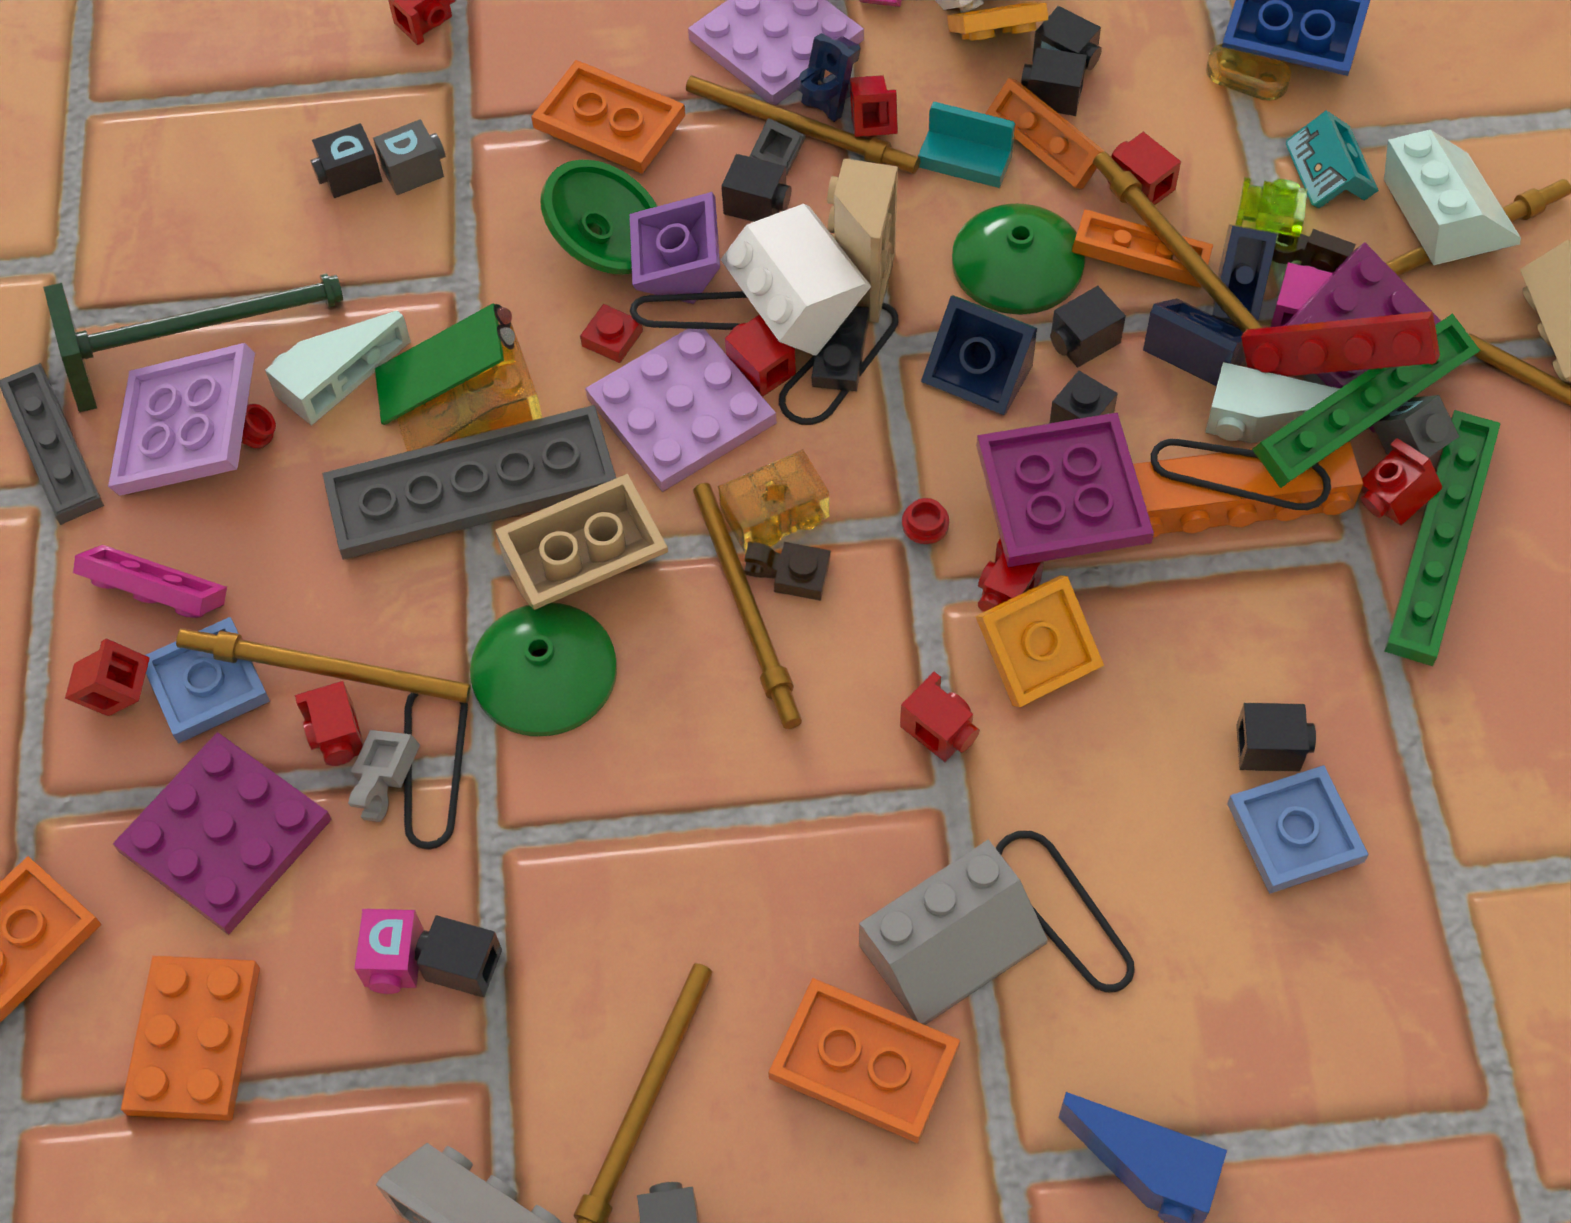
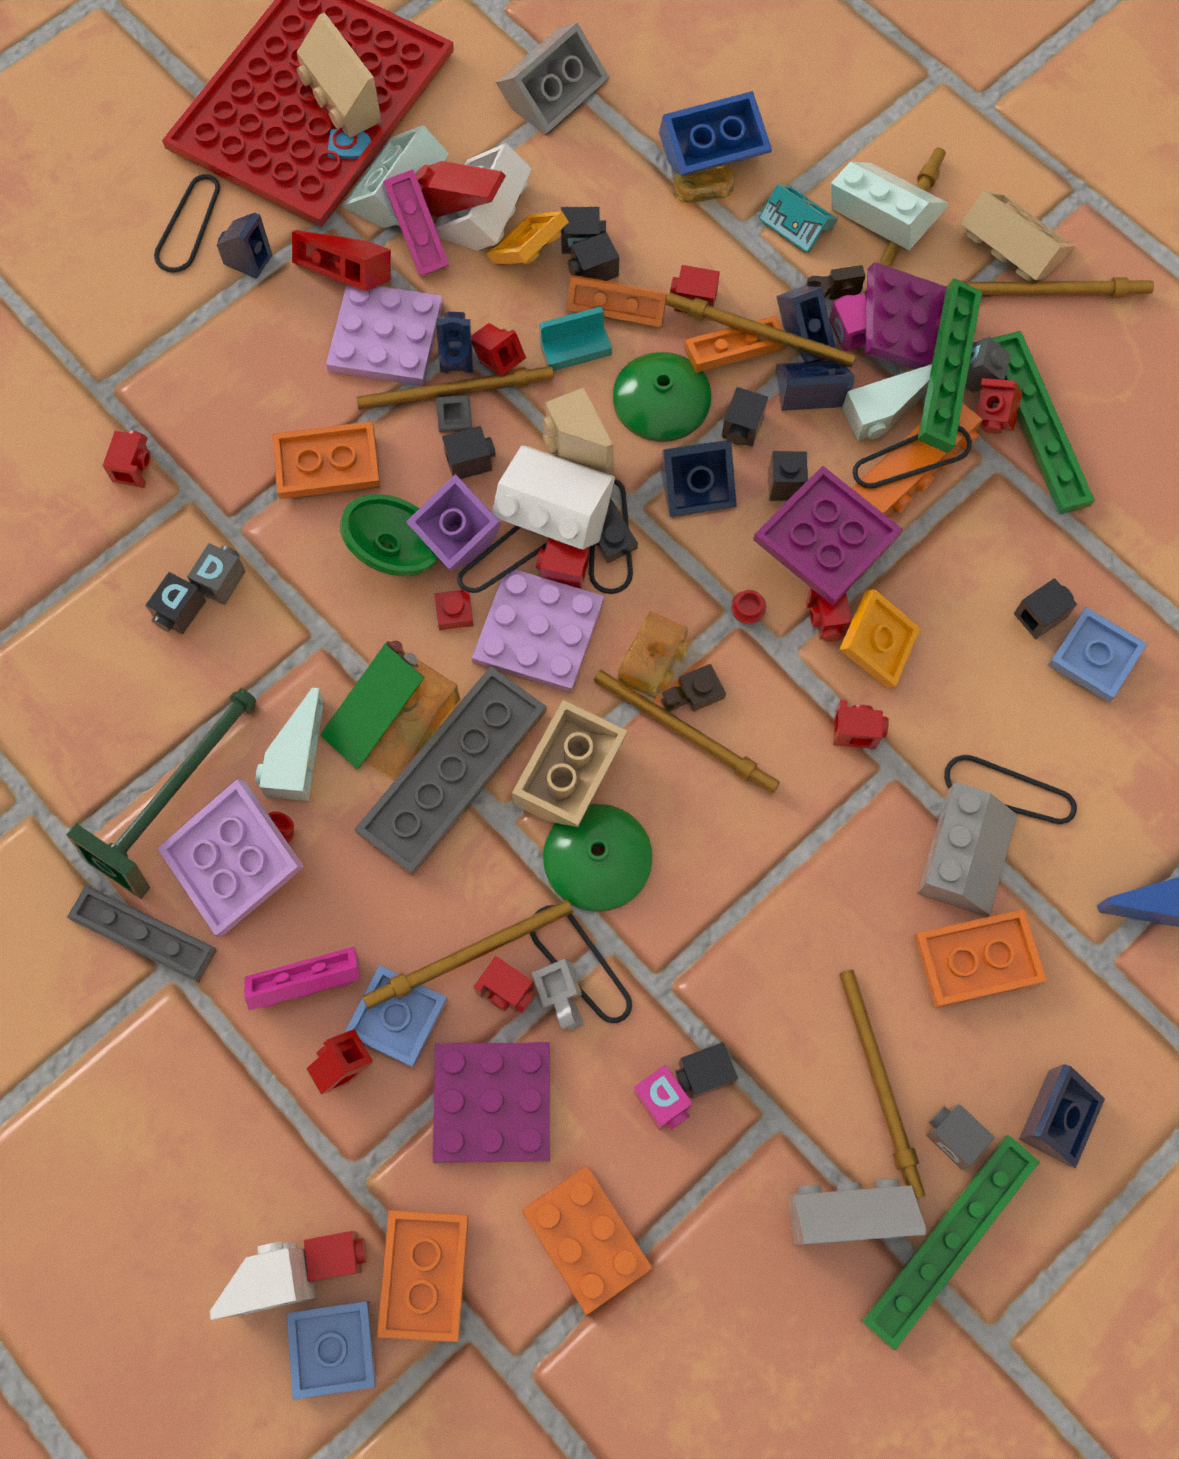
camera: 40 degrees left, 10 degrees up
(1274, 207) = (791, 268): clear neon green plate -> none
(1343, 345) = (916, 339): red plate -> none

